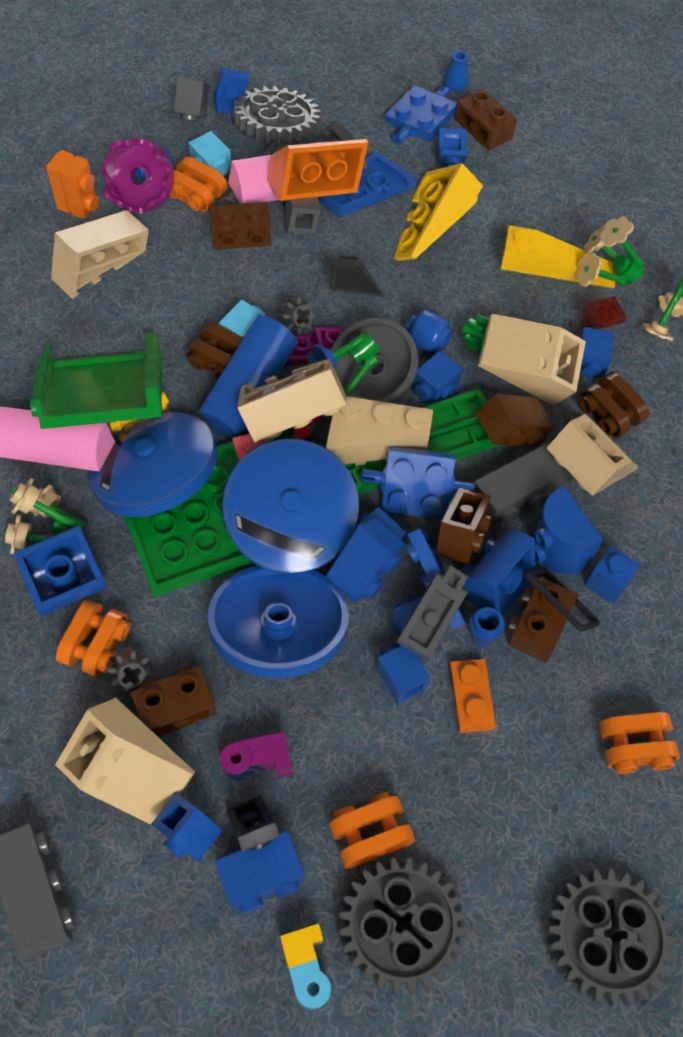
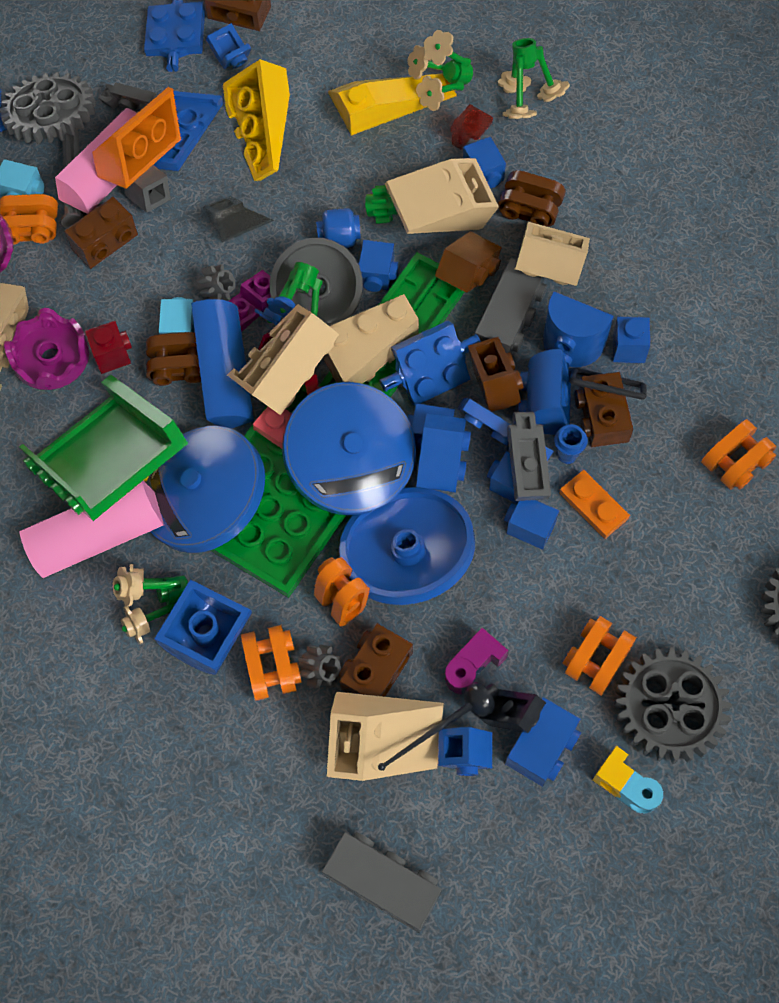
camera: 30 degrees left, 5 degrees up
(126, 273) = (44, 333): none -> magenta plate
(175, 312) = (109, 346): none -> dark red brick
(191, 618) = (335, 586): none -> orange brick
(230, 791) = (477, 700): none -> black sword

